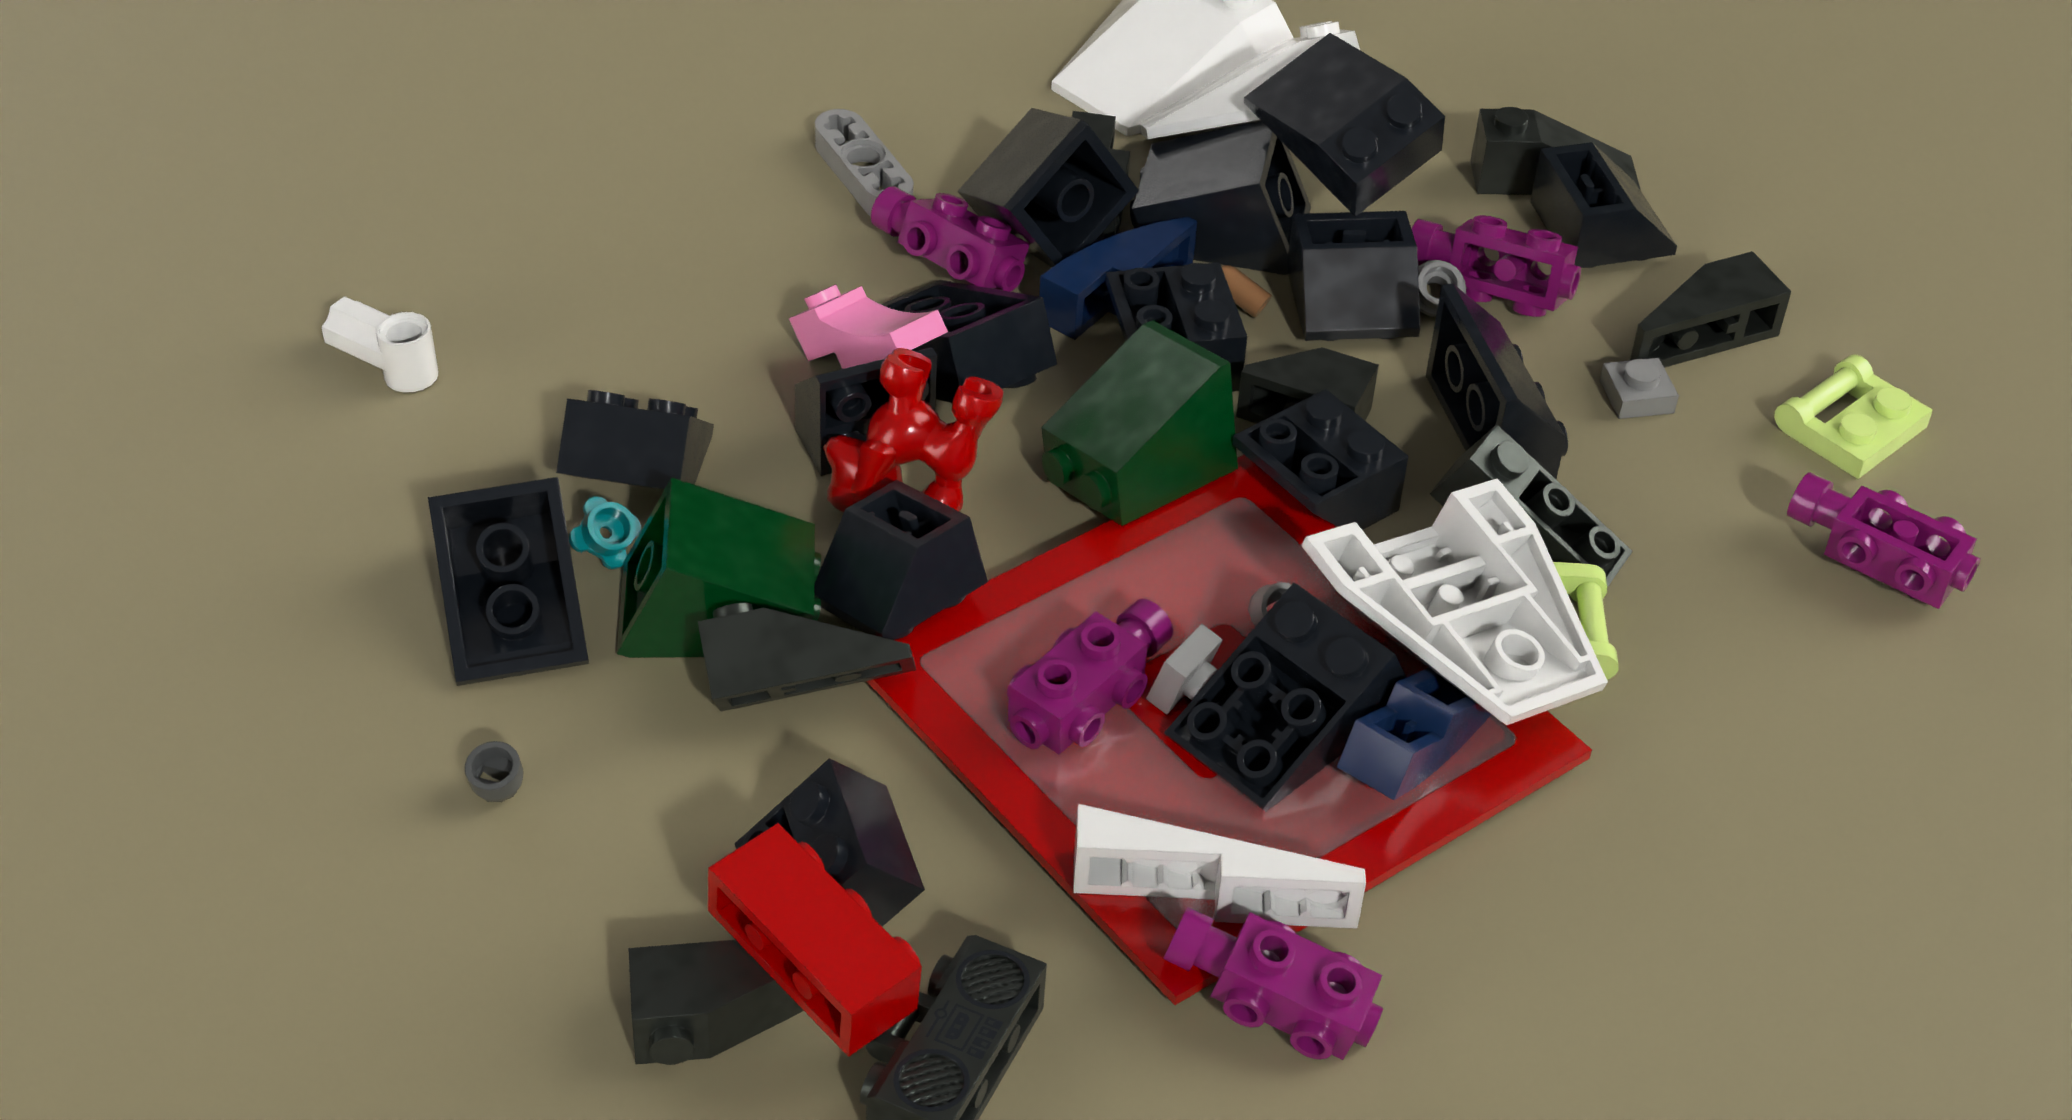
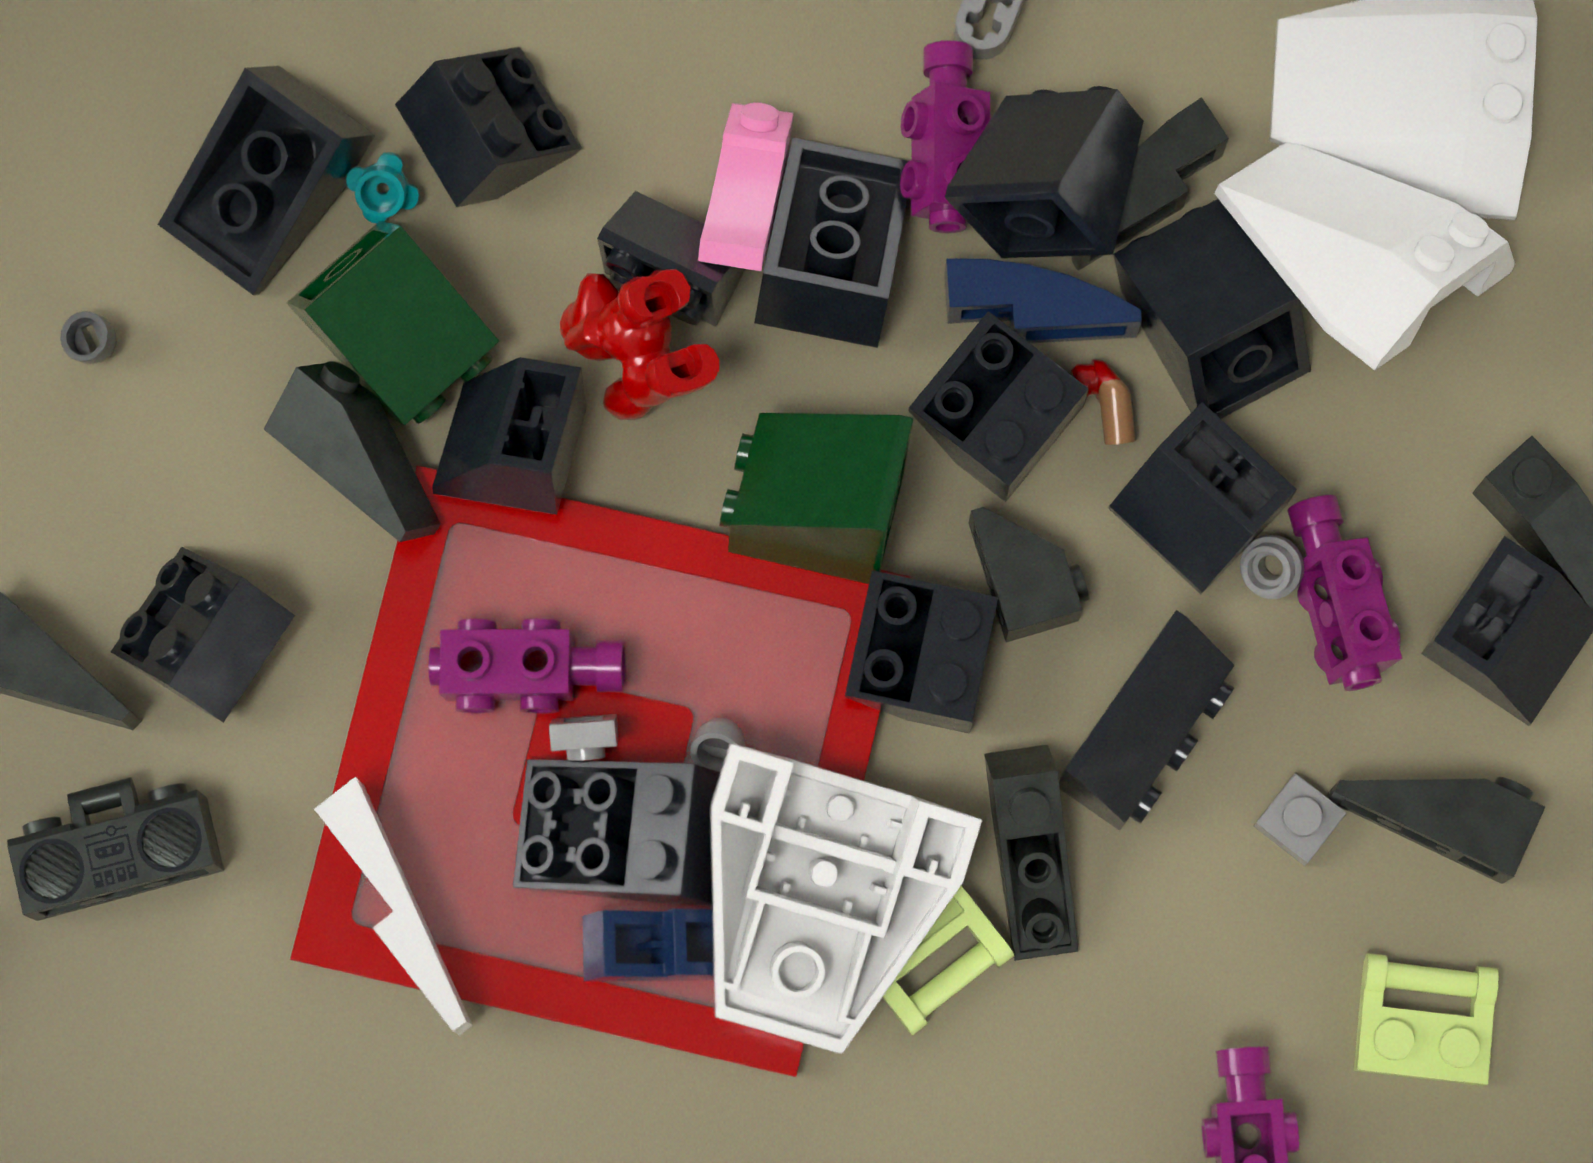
camera: 55 degrees right, 35 degrees up
(814, 938) = (78, 706): red brick -> none
(1282, 981) = (366, 1037): magenta brick -> none
(1349, 120) = (1315, 369): black slope -> none

